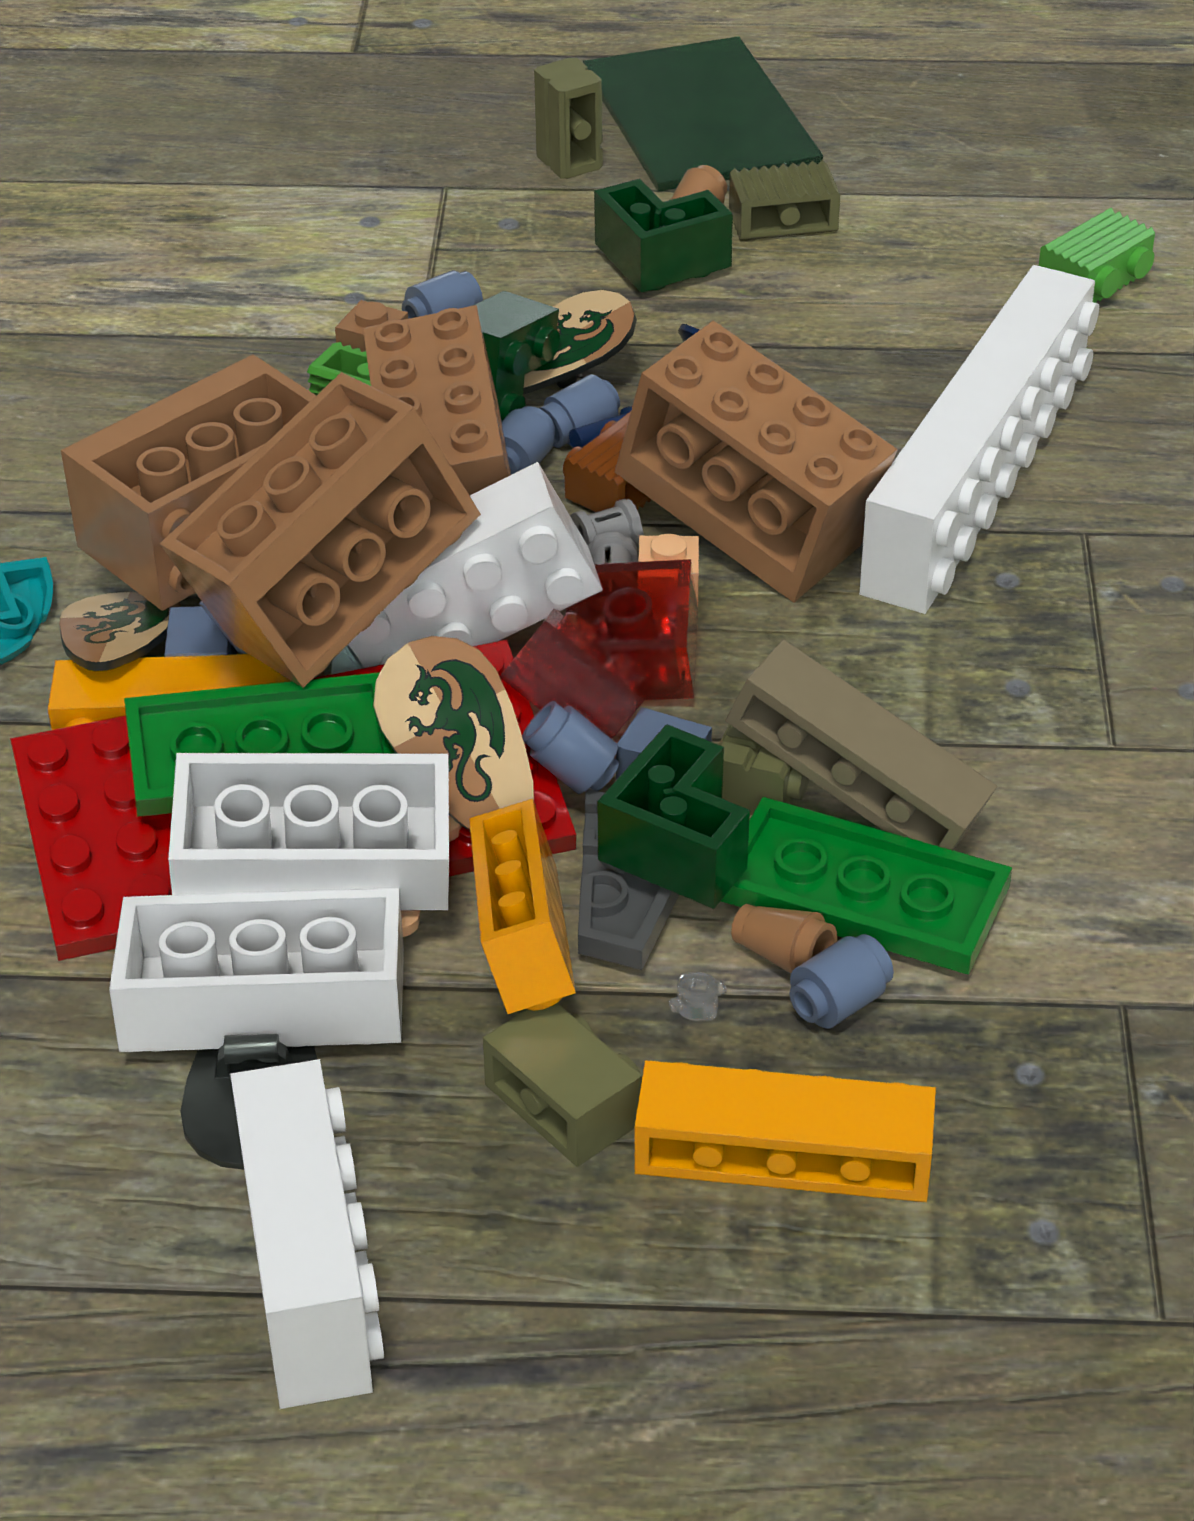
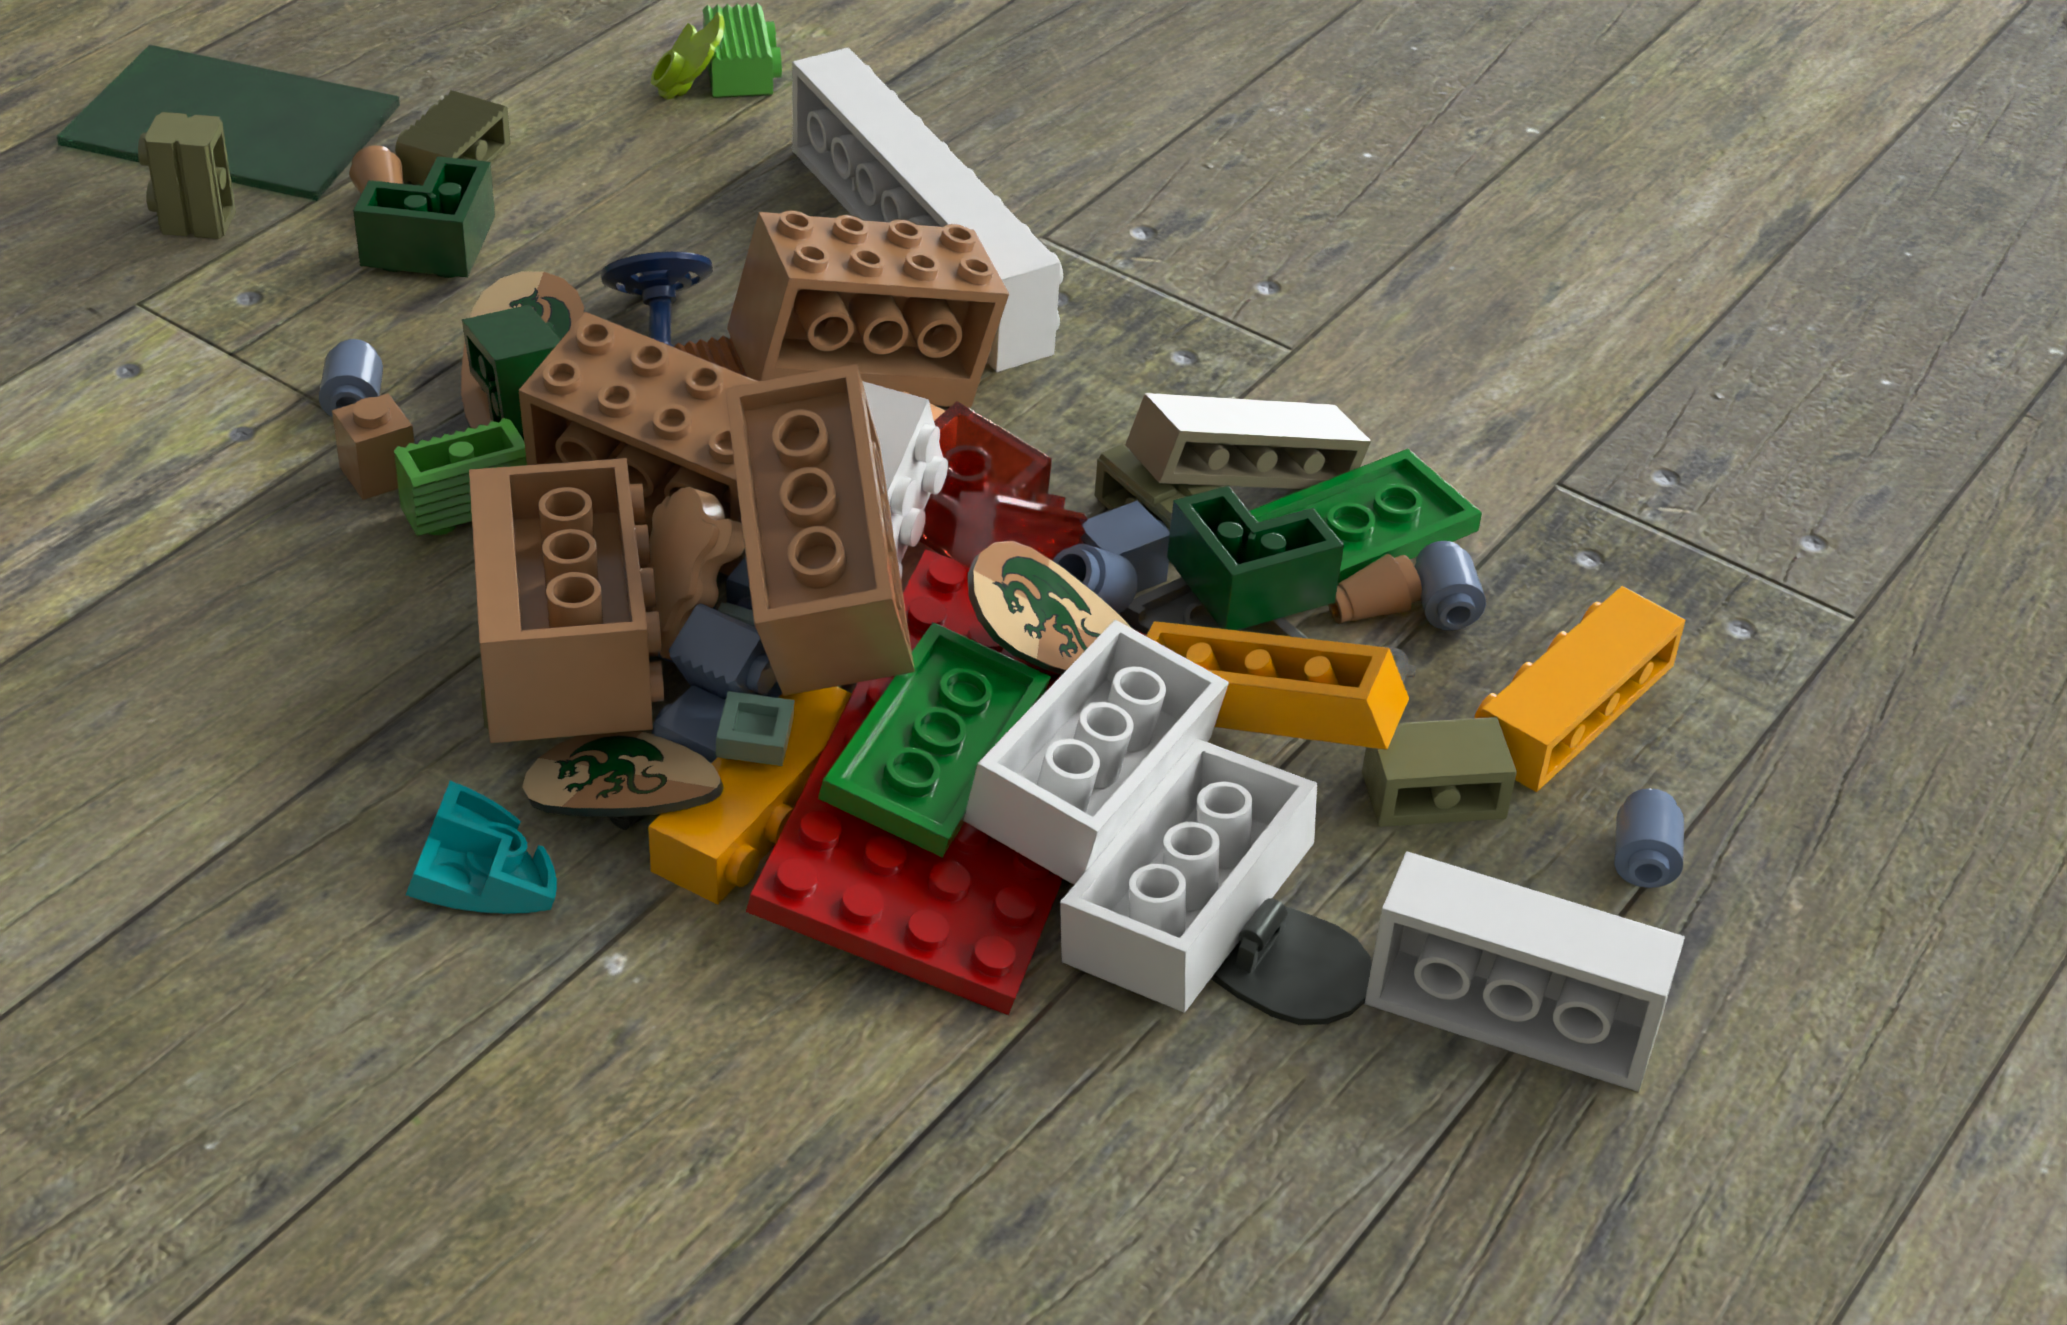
camera: 60 degrees left, 0 degrees up
(186, 650) = (754, 728): none -> sand green plate
(605, 1267) = (1649, 839): none -> sand blue brick
(1023, 245) = (687, 58): none -> lime plate

